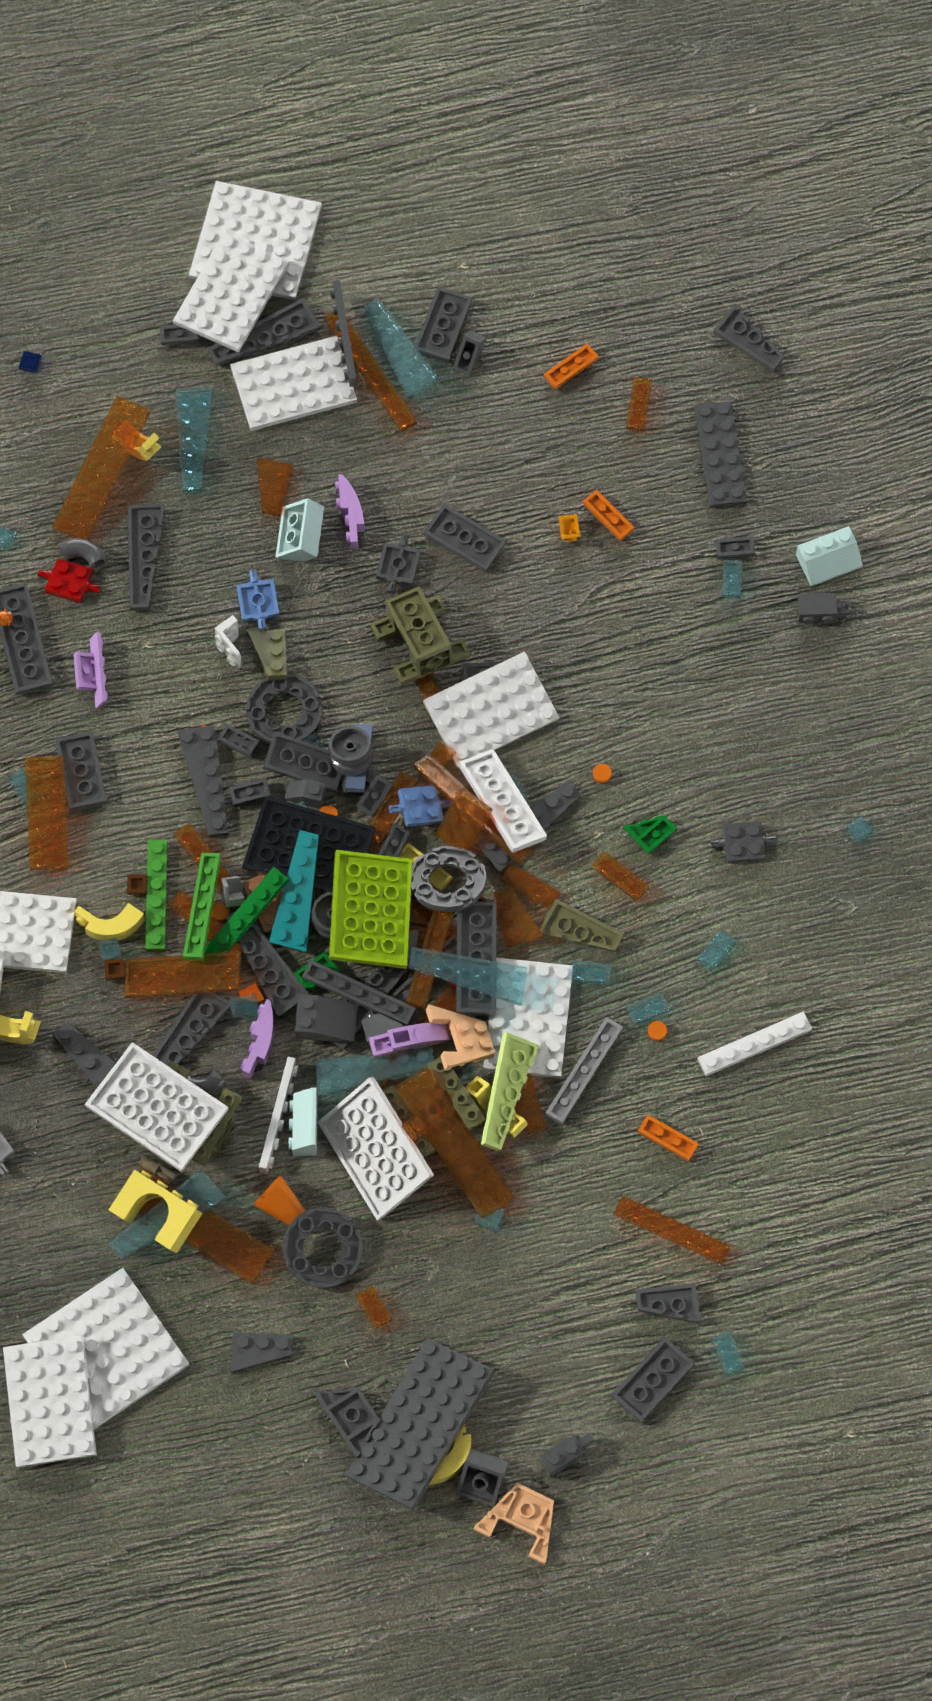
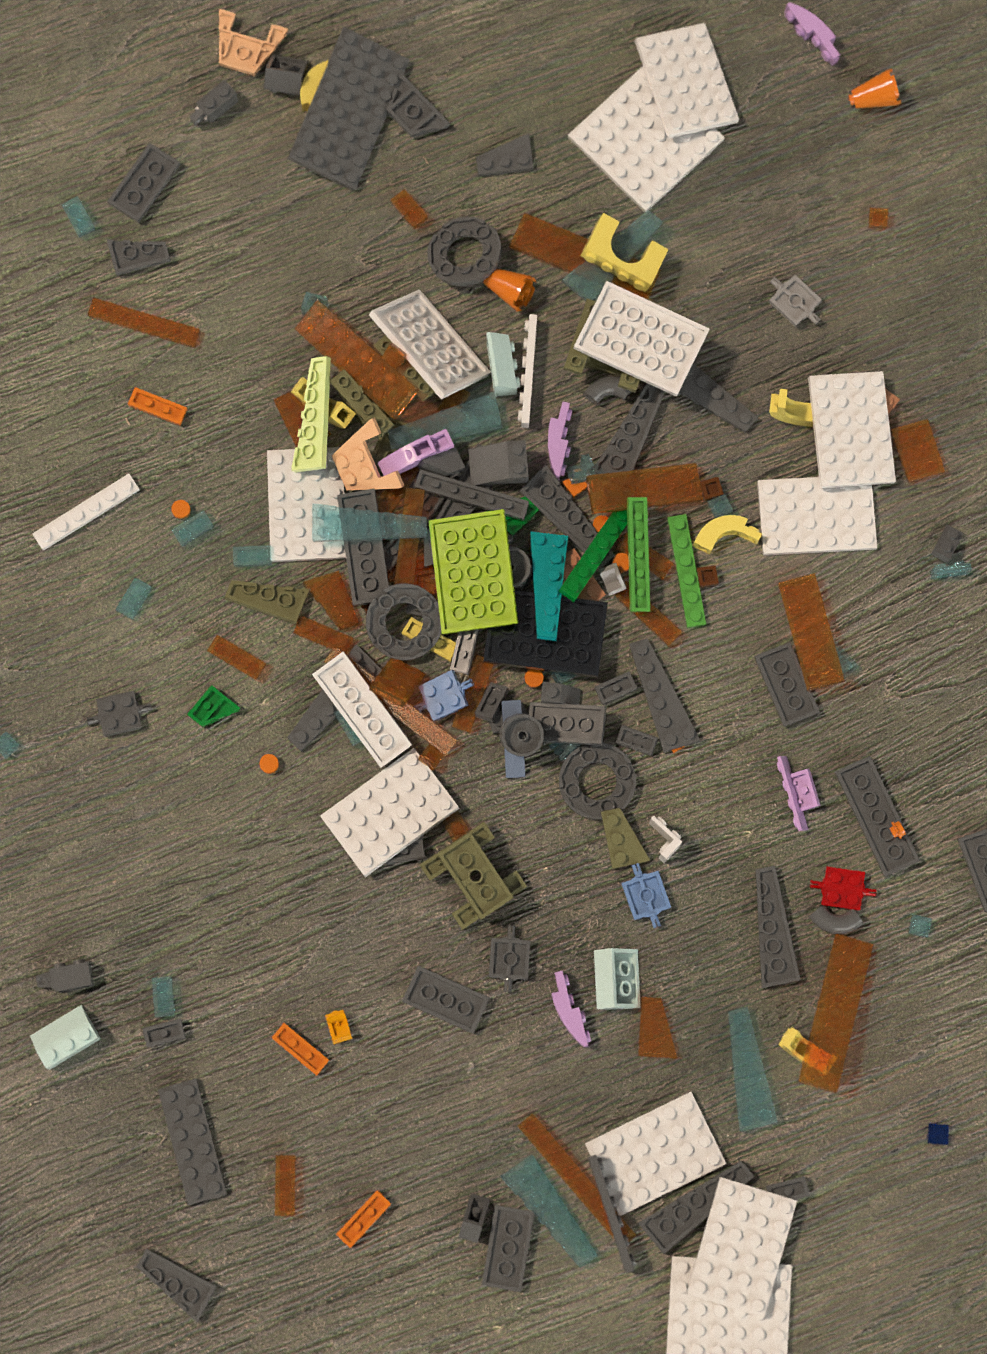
camera: 170 degrees right, 10 degrees up
(584, 1070) = (245, 459): light grey plate -> none

